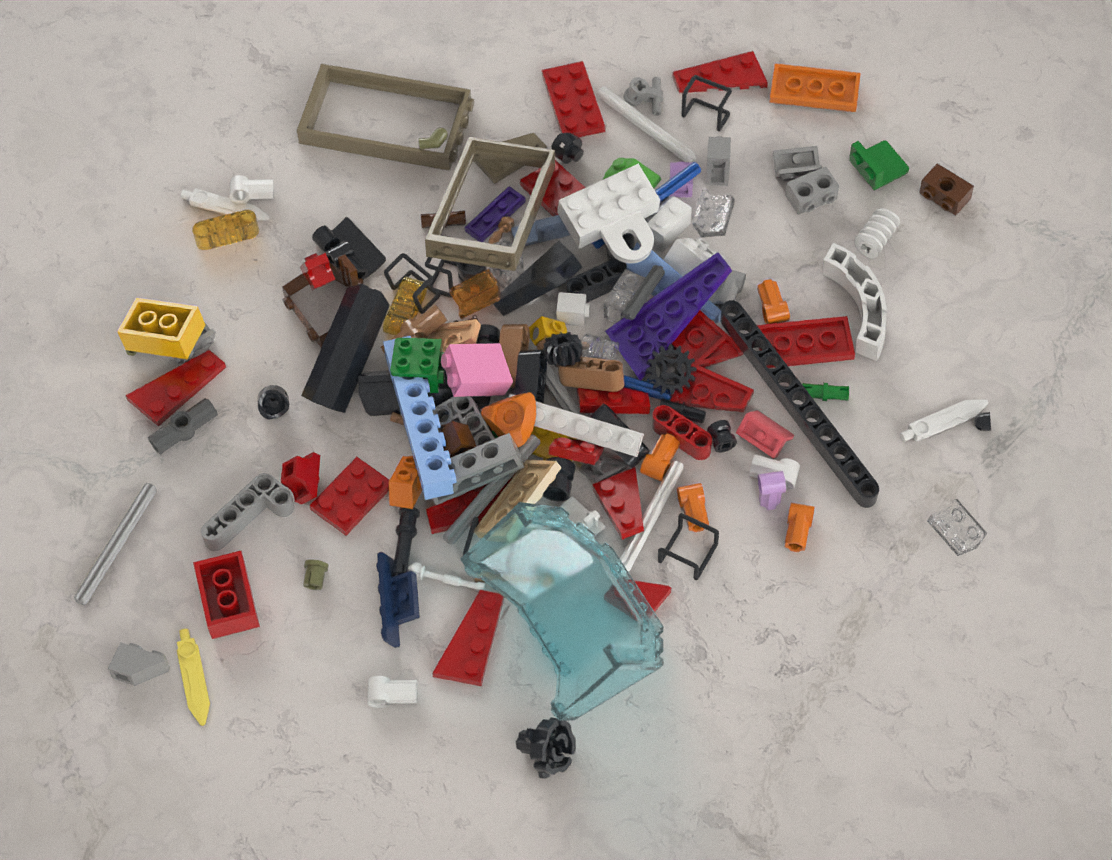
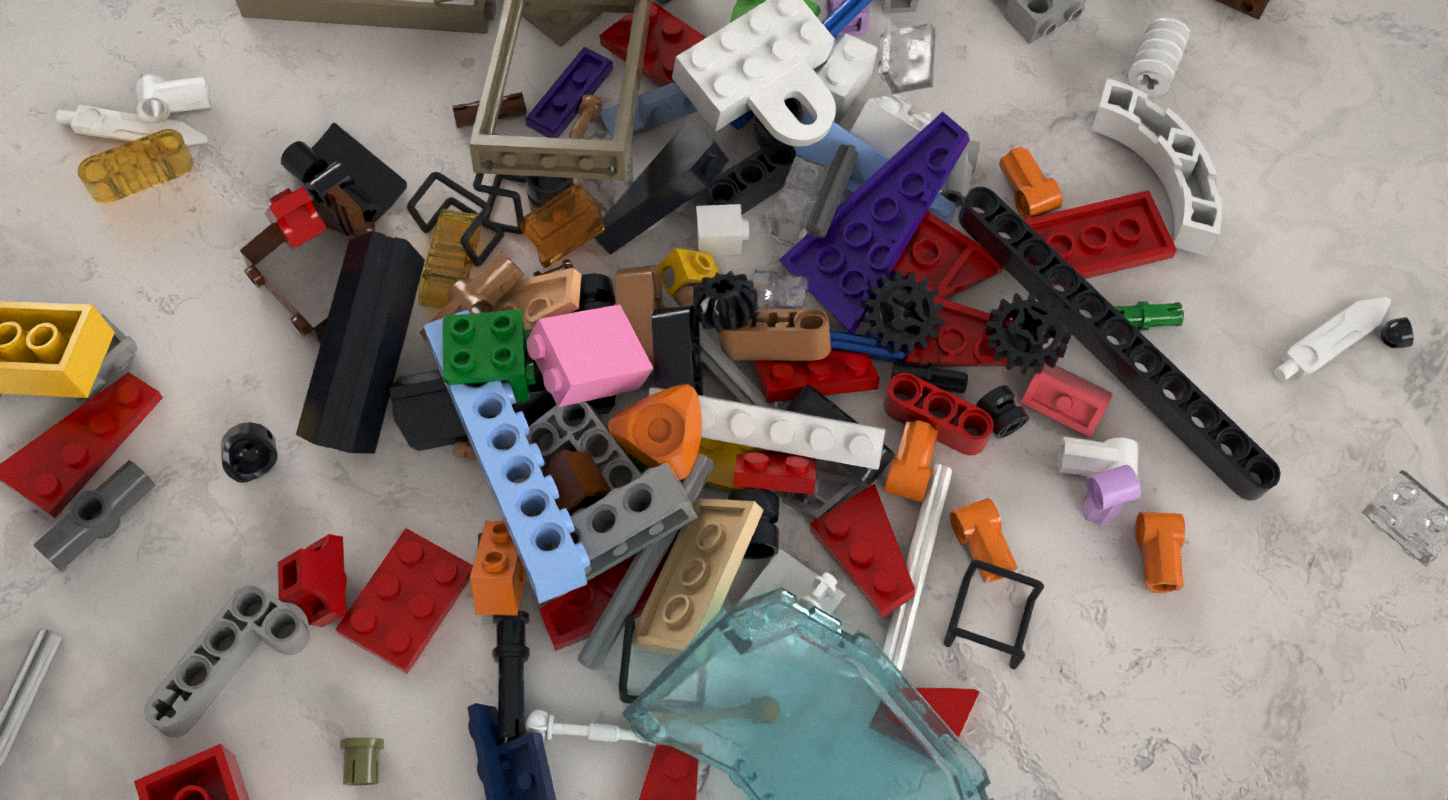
camera: 15 degrees left, 5 degrees up
(733, 395) = (1024, 337): none -> black gear

